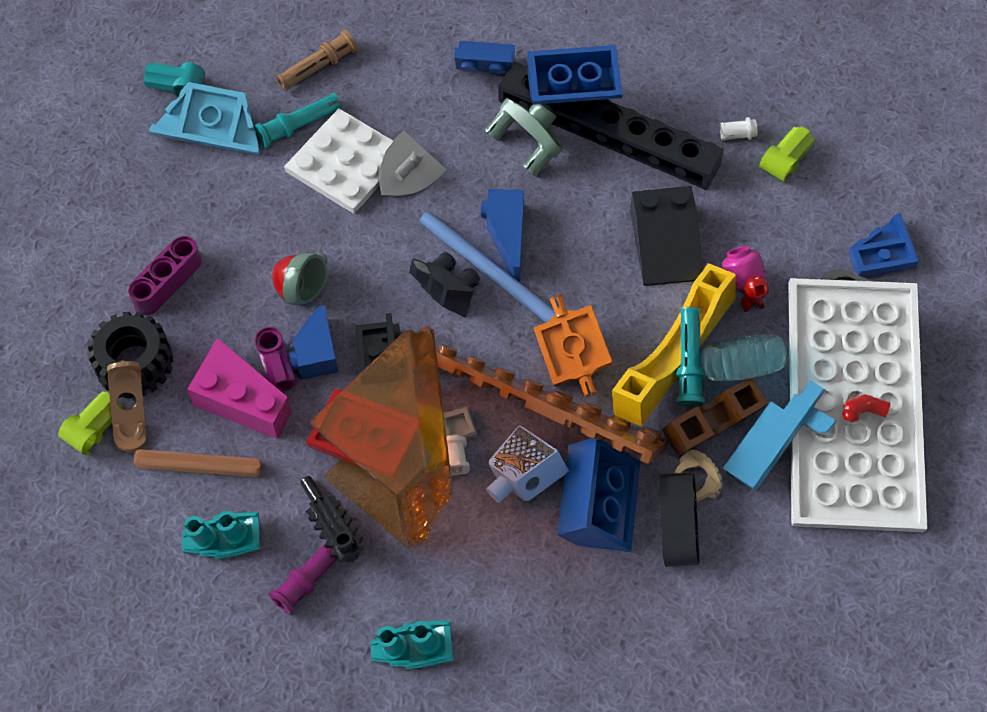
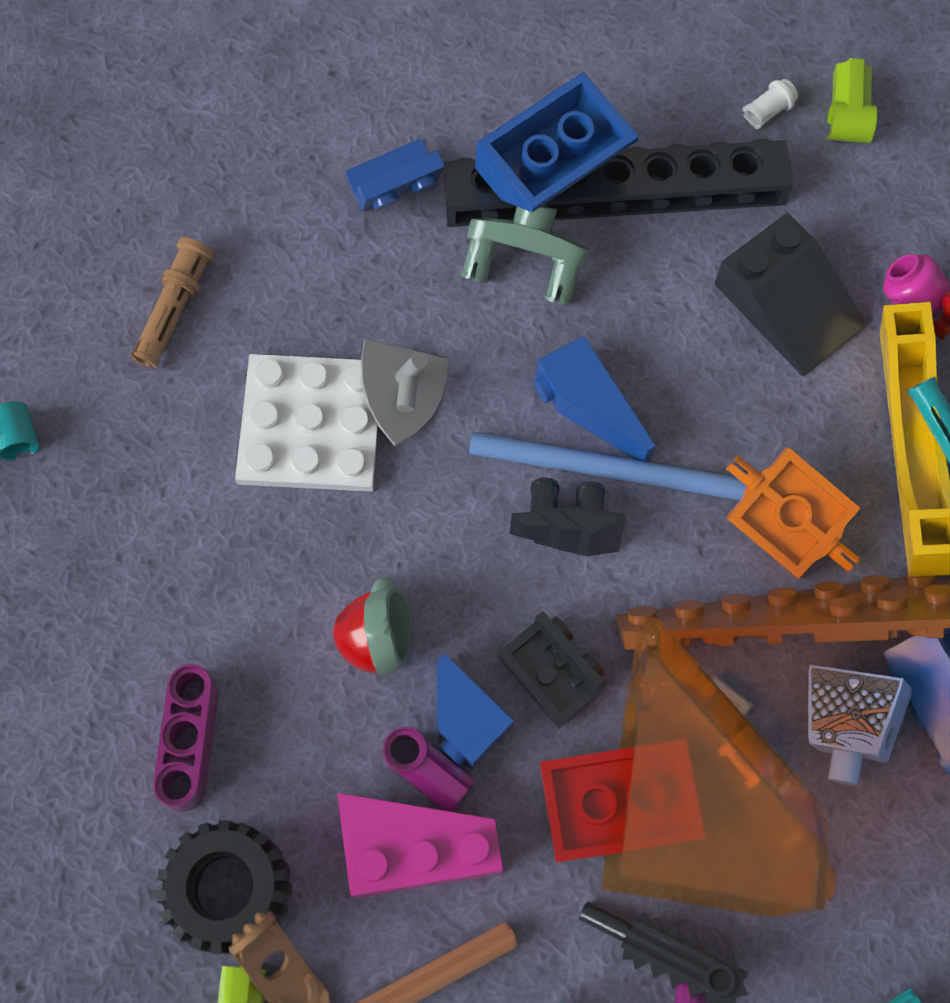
camera: 35 degrees left, 10 degrees up
(210, 119) = (85, 470): medium azure wing -> none
(285, 124) = (194, 418): teal pin -> none

